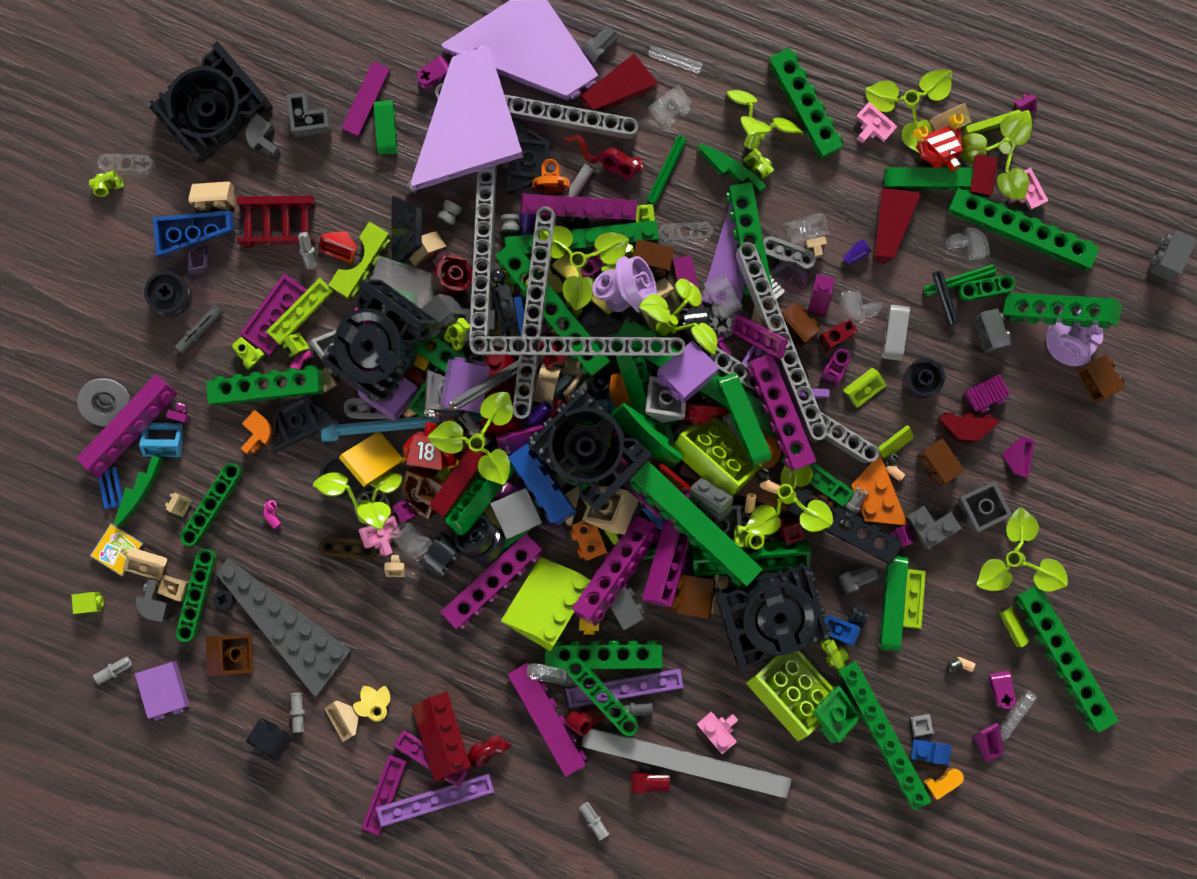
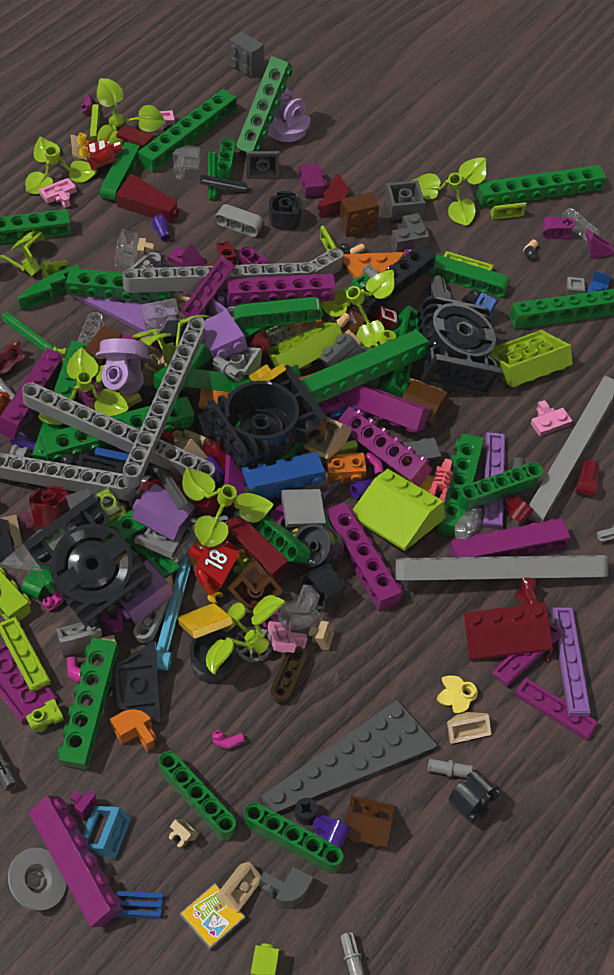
camera: 80 degrees left, 30 degrees down
(133, 498) = (157, 875): green slope -> none
(162, 690) = (391, 903): medium lavender brick -> none
(173, 588) = (278, 857): tan slope -> none
(204, 629) = (331, 830): none -> dark purple piece
(295, 344) = (56, 667): lime tile -> none
(511, 718) = (501, 567): none -> light grey beam
(571, 561) = (359, 487): none -> dark purple cone
(591, 638) = (442, 479): none -> coral hinge
(637, 437) = (266, 373): none -> yellow slope
(643, 393) = (228, 368): none -> light grey pin
(836, 656) = (502, 321): lime plate -> none
(836, 715) = (557, 327): green plate -> none
(853, 308) = (205, 239): clear brick -> none
(864, 387) = (276, 251): lime slope -> none
(1020, 456) = (369, 177): magenta slope -> none
(1101, 378) = (326, 112): reddish brown brick -> none

